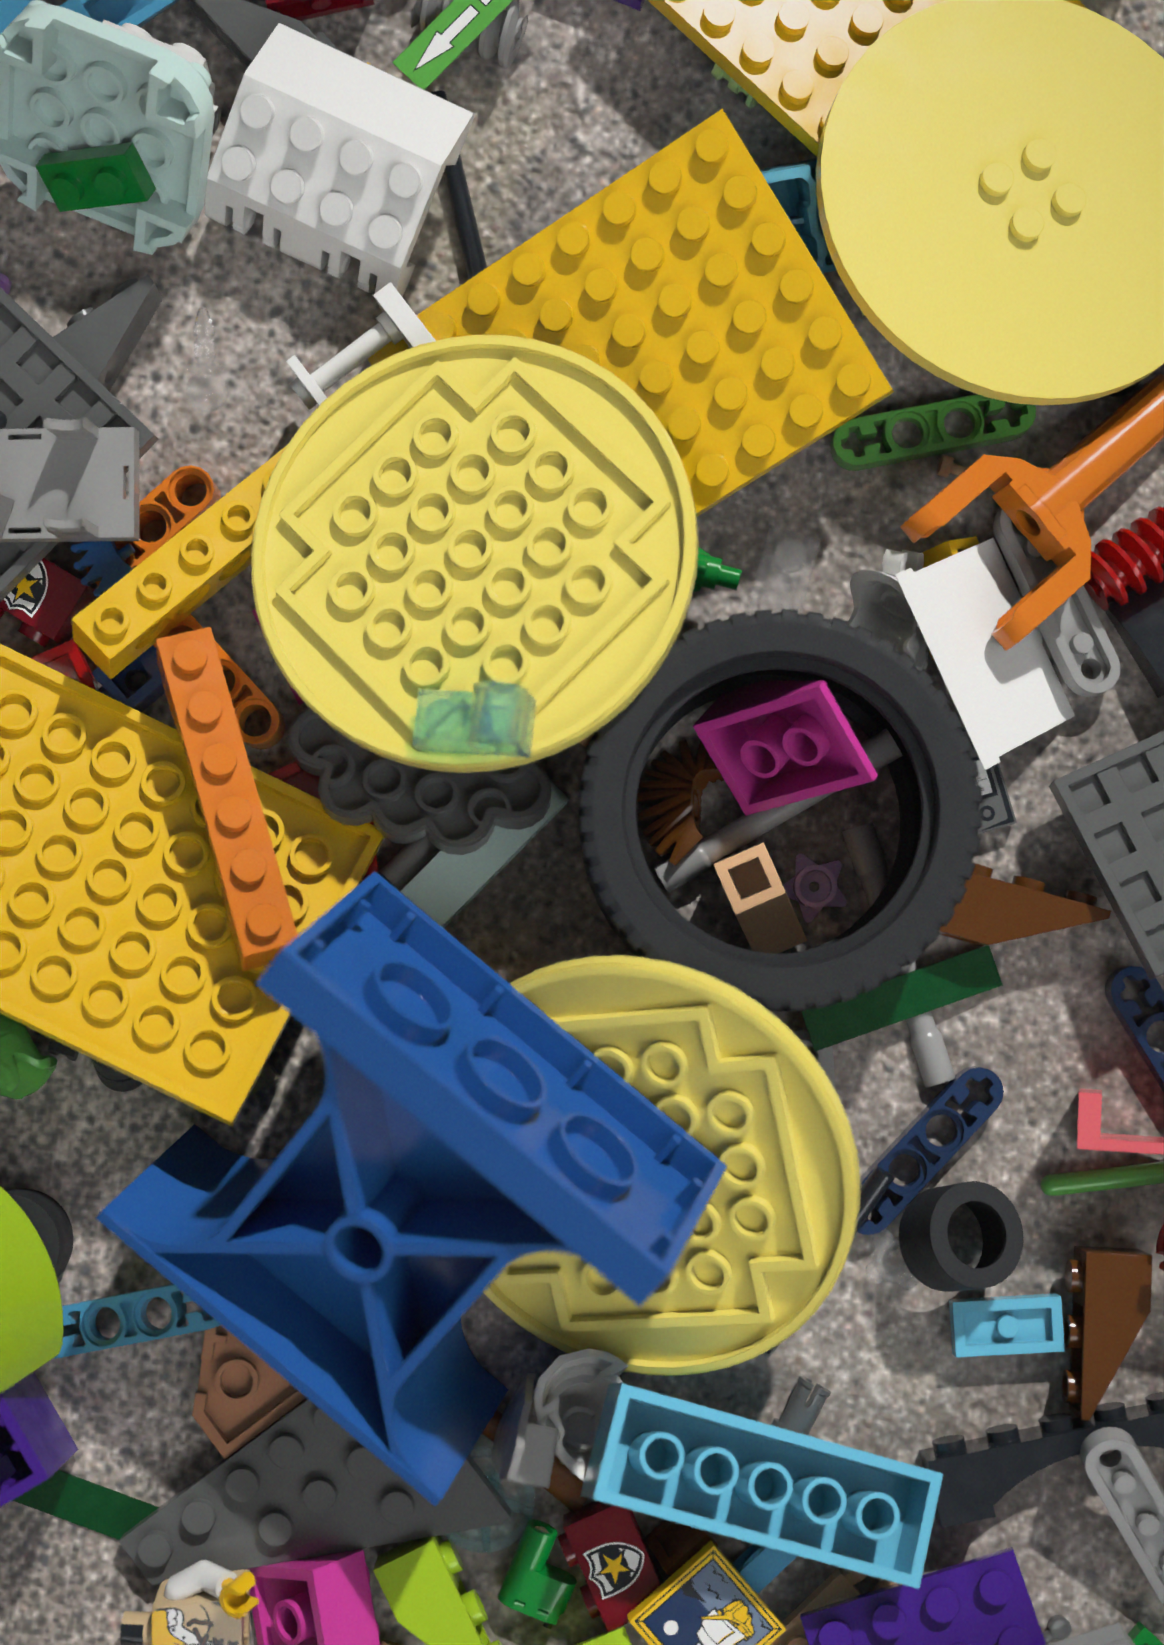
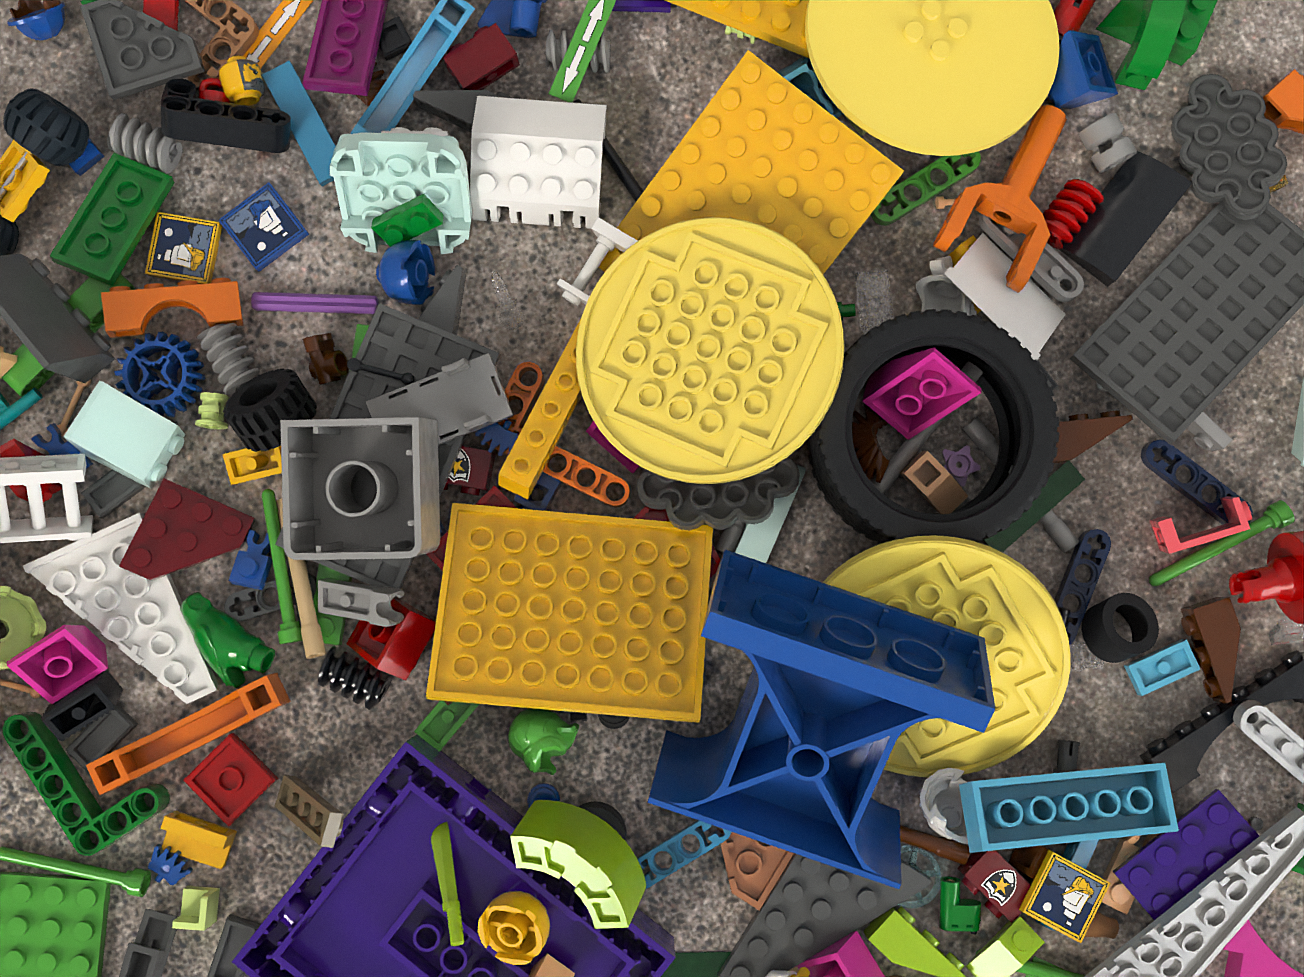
camera: 15 degrees left, 0 degrees up
(68, 256) = (406, 272): none -> blue cylinder
(227, 796) = (648, 570): orange arch -> none
(487, 721) = (757, 442): clear light blue plate -> none
(520, 1449) = (924, 839): light grey panel -> none

